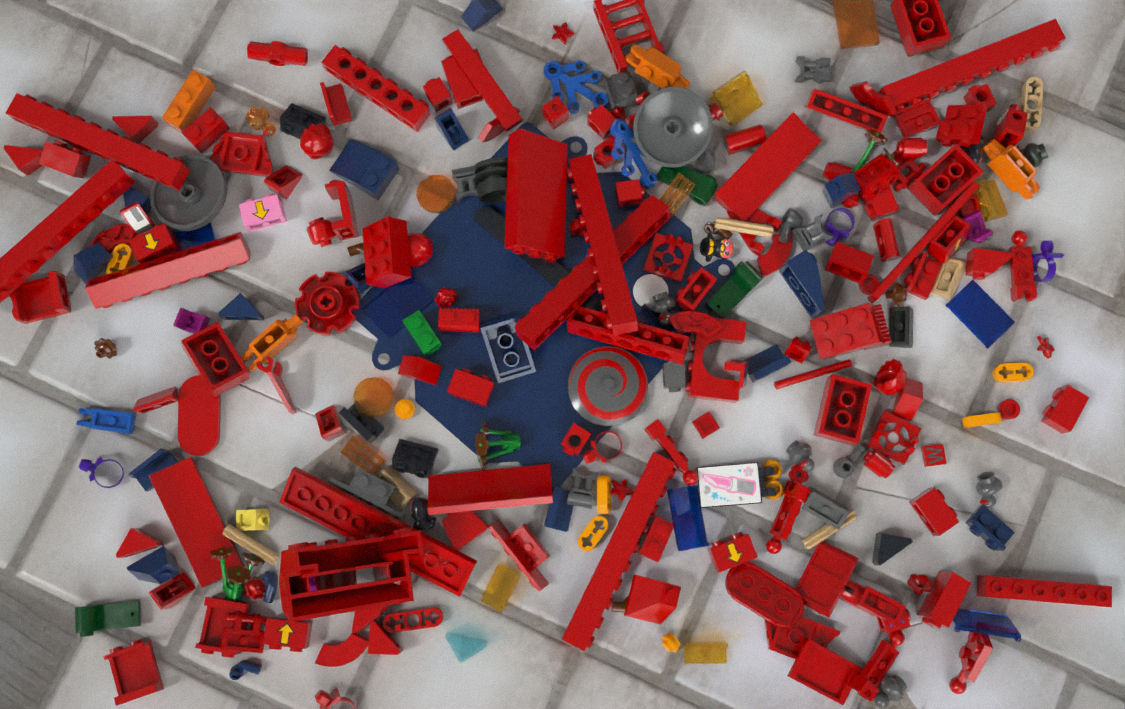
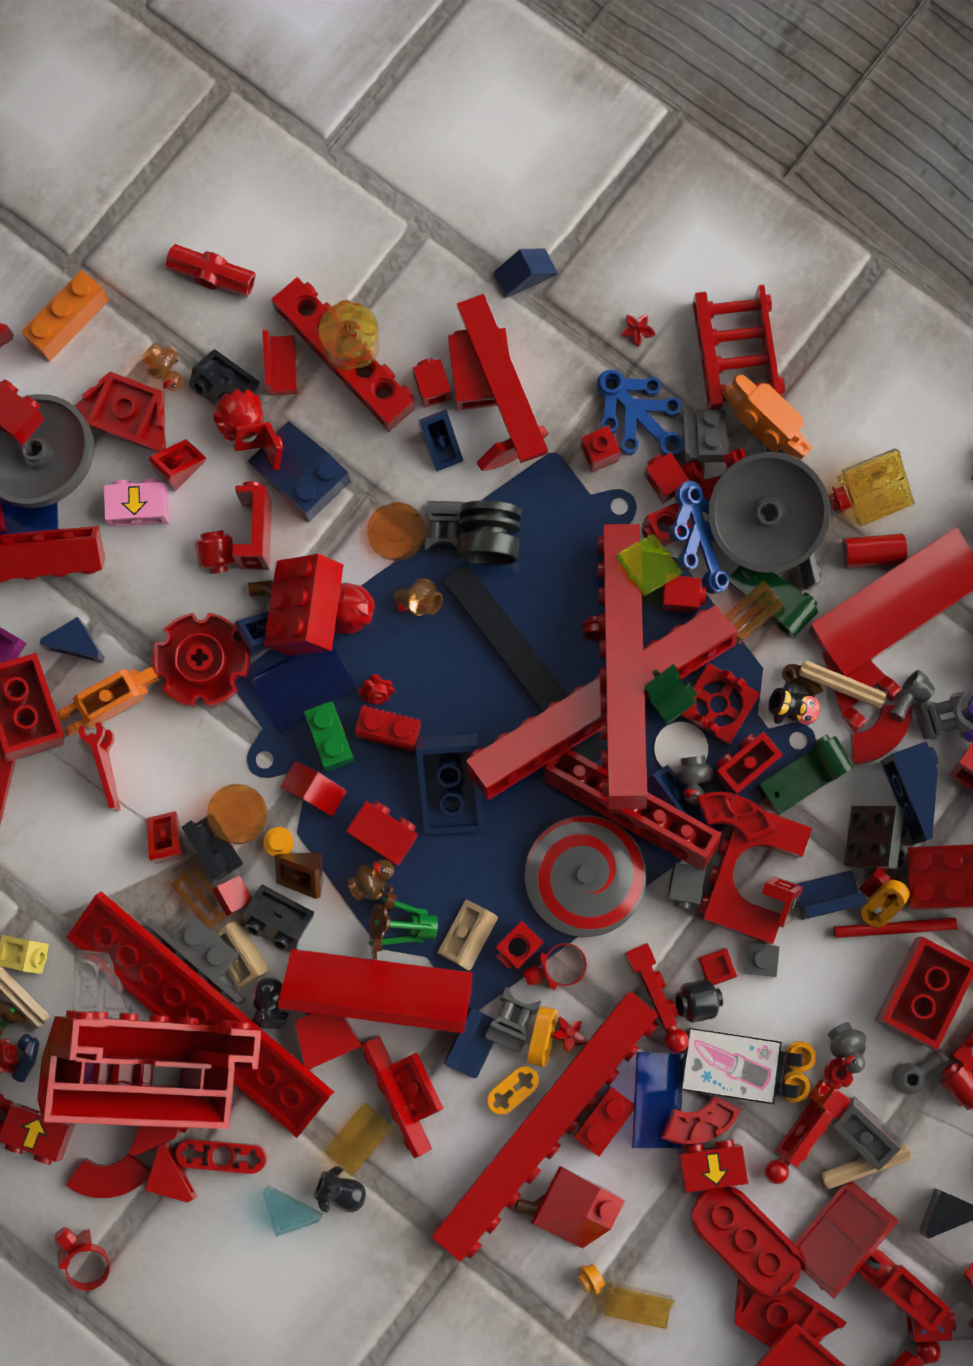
camera: 15 degrees right, 0 degrees up
(205, 130) = (80, 363): red brick -> none
(306, 526) = (97, 985): none -> clear wing
(338, 153) = (265, 439): none -> red bracket
(377, 73) = (344, 320): none -> clear yellow brick
(382, 450) = (232, 895): none -> tile
(423, 425) = (300, 872): none -> reddish brown slope
(460, 233) = (420, 599): none -> clear orange animal
(470, 420) = (369, 881): none -> clear orange animal
(497, 625) = (341, 1192): none -> black animal
(536, 196) = (542, 570): red brick -> none
(540, 440) = (467, 935): none -> tan slope
(603, 177) = (649, 564): none -> clear neon green piece
(635, 257) = (669, 694): none -> dark green door
(698, 448) = (698, 1001): none -> black head
(718, 527) = (700, 1125): none -> red tile
(733, 413) = (762, 959): none -> dark grey plate
(787, 318) = (875, 837): none -> pearl dark grey plate
(799, 357) = (889, 907): none -> light orange beam

